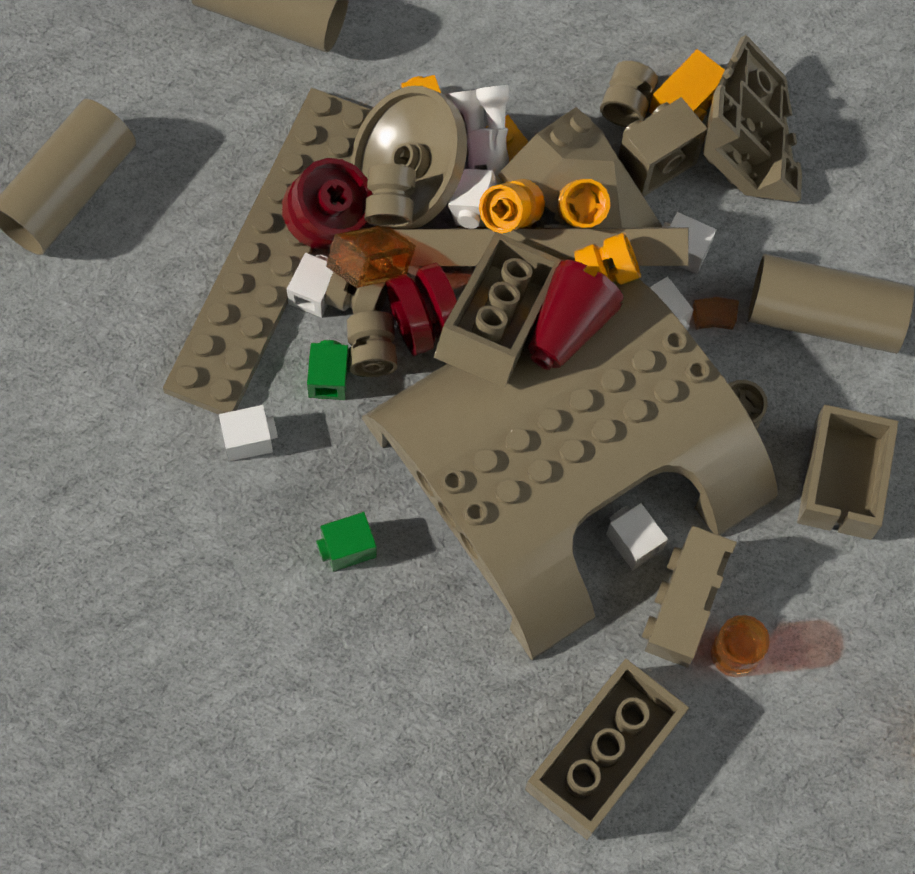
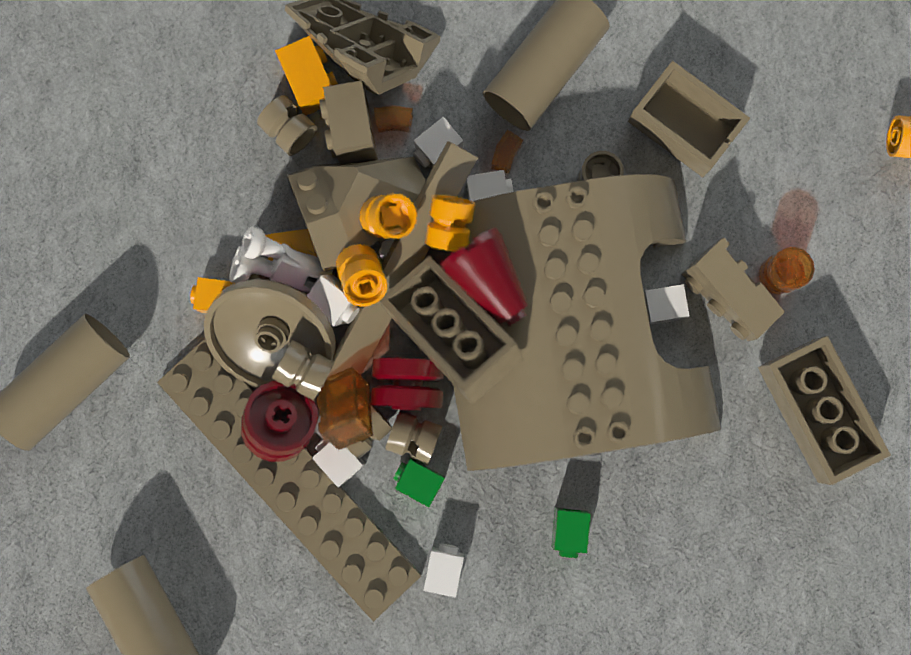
camera: 55 degrees left, 15 degrees up
(690, 191) = (393, 118): none -> clear orange piece

